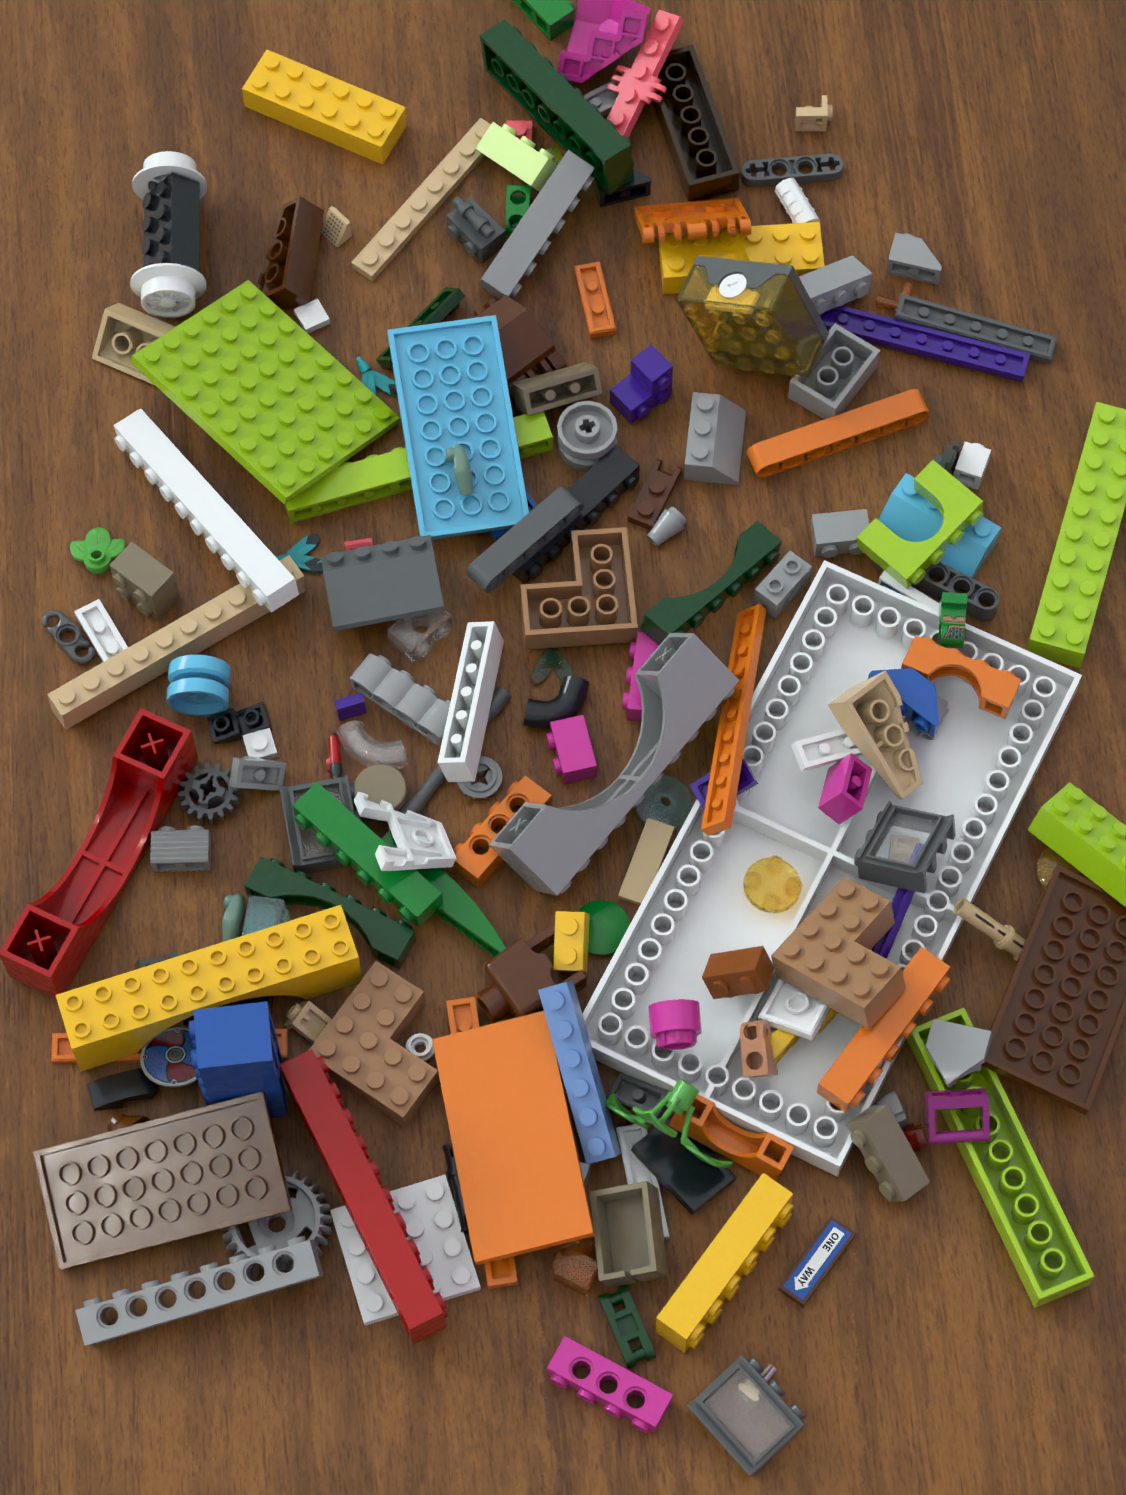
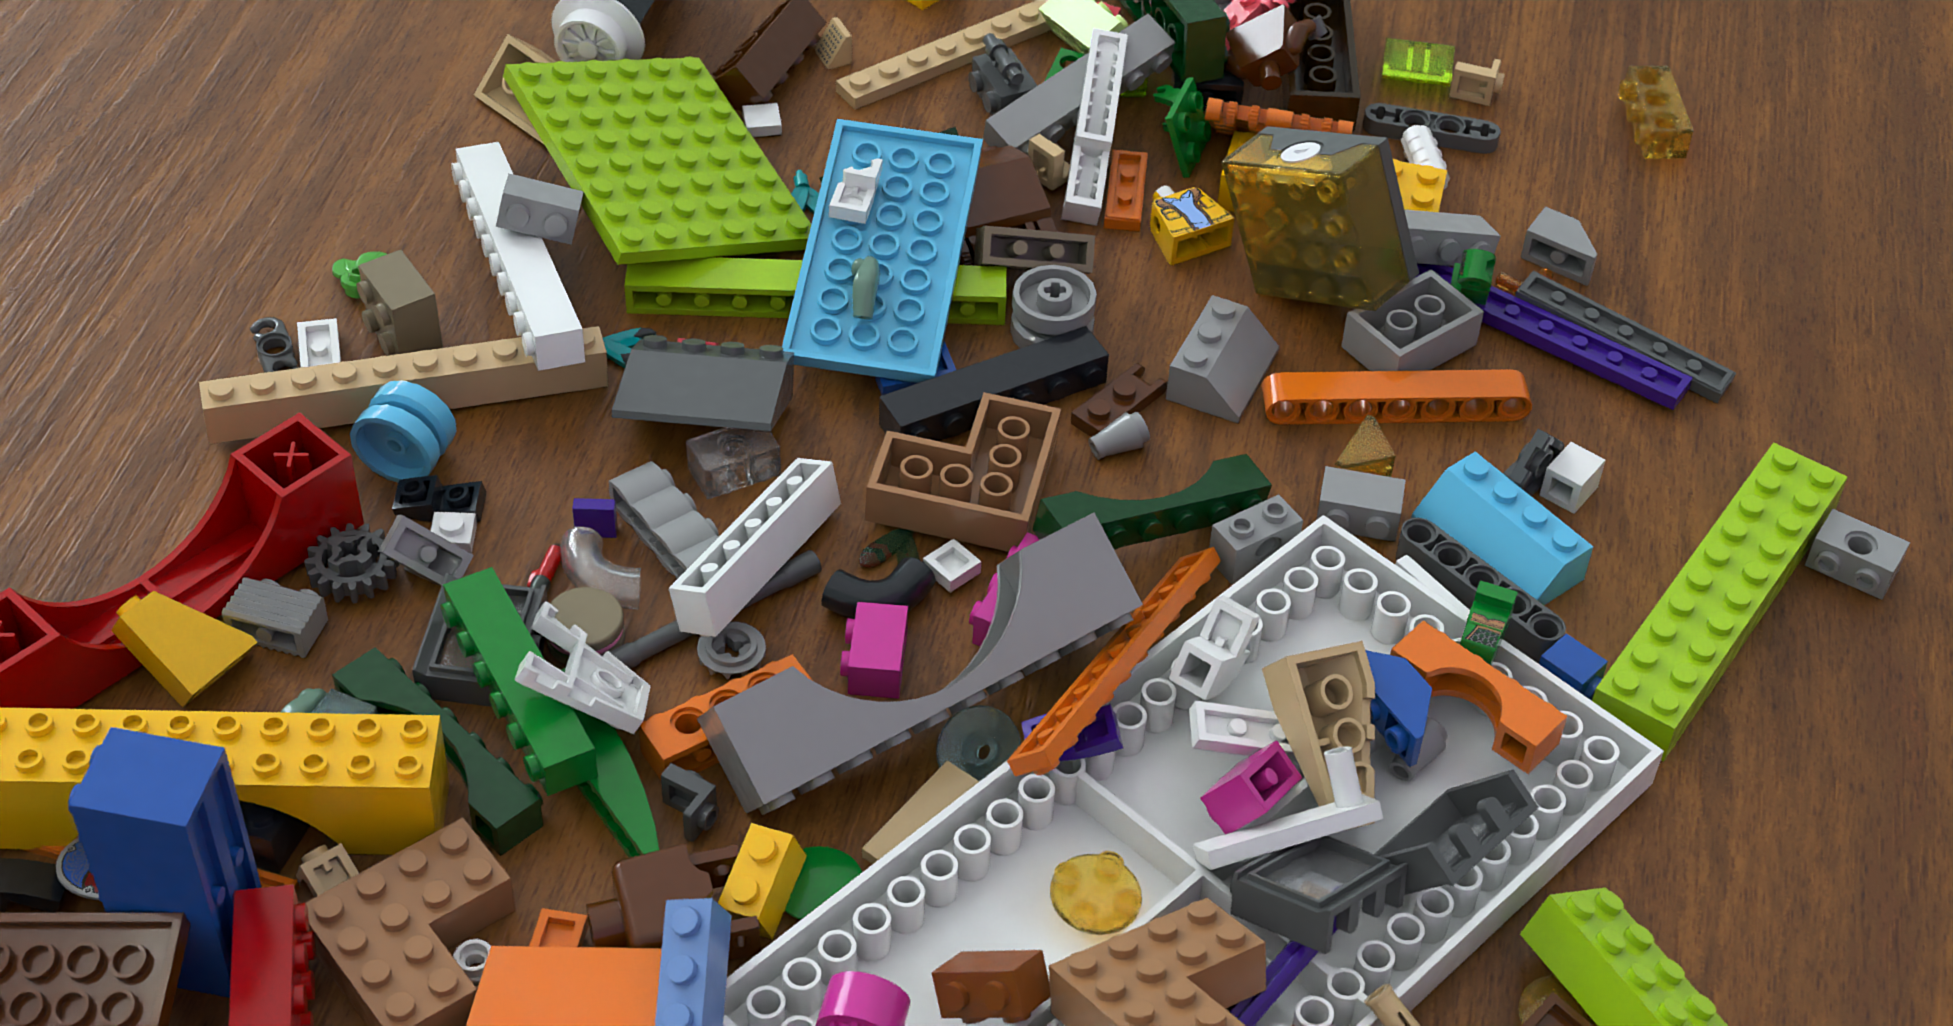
camera: 15 degrees right, 20 degrees down
(138, 896) = (179, 644): none -> yellow slope
(213, 477) = (539, 209): none -> light grey brick
(426, 393) = (856, 193): none -> white slope
(502, 893) = (692, 797): none -> dark grey bracket
(524, 539) = (915, 385): dark grey beam -> none
(536, 298) = (1048, 162): none -> tan bracket
(560, 259) = (1095, 127): none -> white slope
(594, 667) = (953, 565): none -> white plate
(622, 228) = (1185, 123): none -> green plate
(644, 387) = (1153, 282): dark purple brick -> none
(650, 320) = (1189, 224): none -> yellow torso
(663, 146) = (1270, 46): none -> reddish brown torso
(765, 112) = (1417, 62): none -> clear neon green brick
(793, 698) = (1217, 655): none -> white brick
(835, 491) = (1368, 450): none -> clear yellow slope
(864, 321) = (1474, 275): none -> green leg
(880, 810) = (1348, 811): none -> white piece
(907, 559) = (1448, 543): lime arch -> none
(958, 110) = (1656, 112): none -> clear yellow brick
(974, 780) = (1459, 830): none -> dark grey window
(1010, 623) = (1575, 665): none -> blue brick

